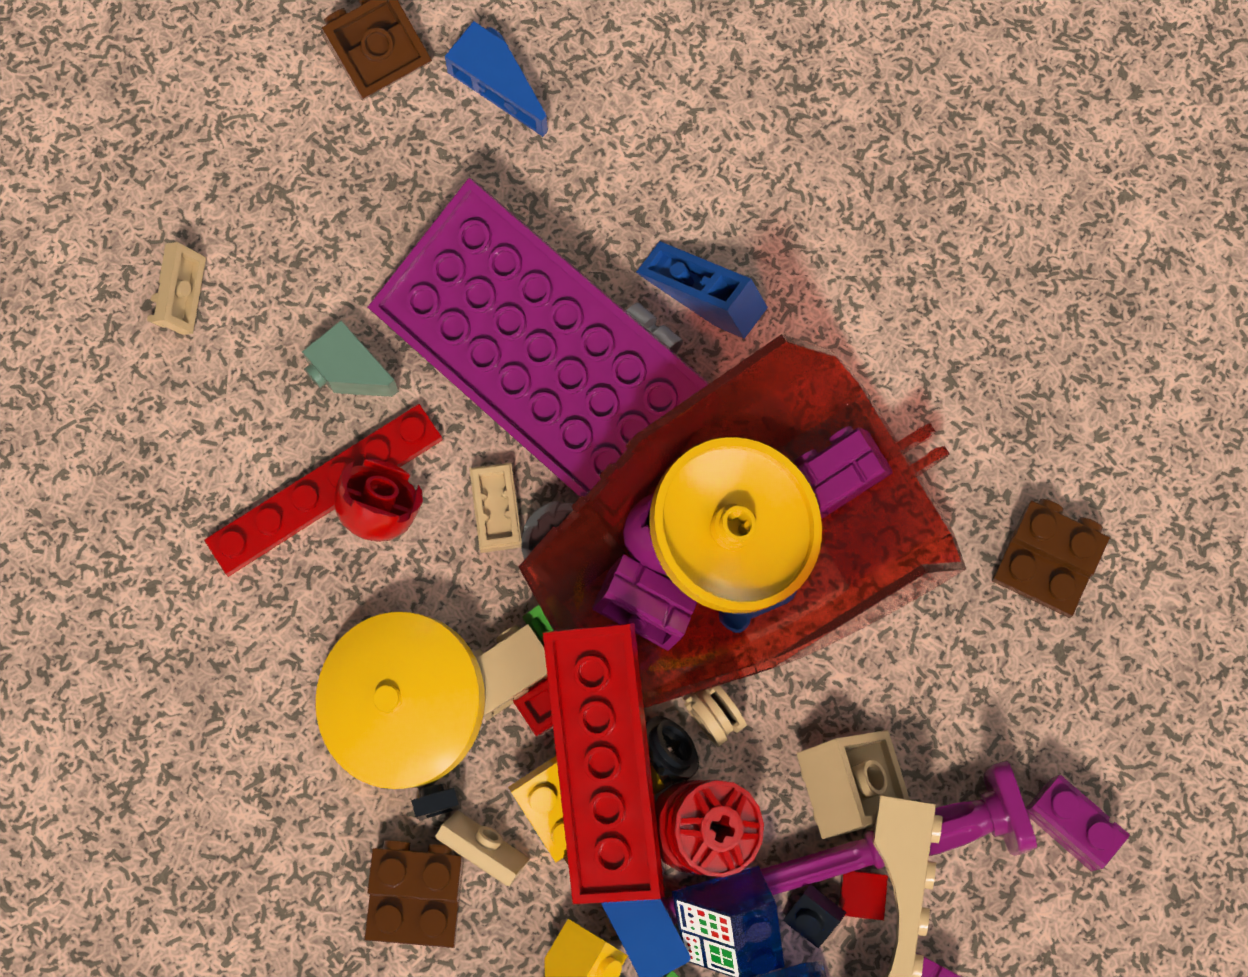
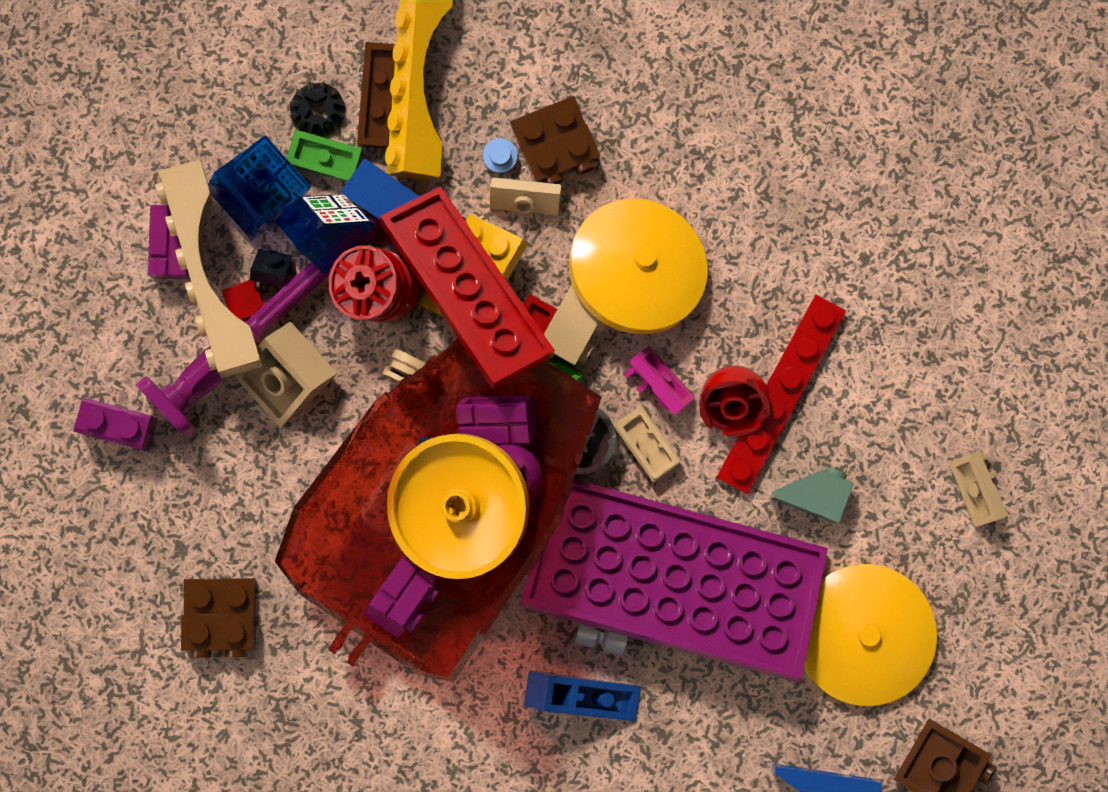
camera: 150 degrees right, 10 degrees up
(371, 204) = (870, 636): none -> yellow dish
(435, 801) = (574, 211): black plate -> none
(441, 555) = (665, 384): none -> dark pink plate
(485, 913) = (500, 155): none -> light blue plate
(682, 760) = (416, 330): black gear -> none

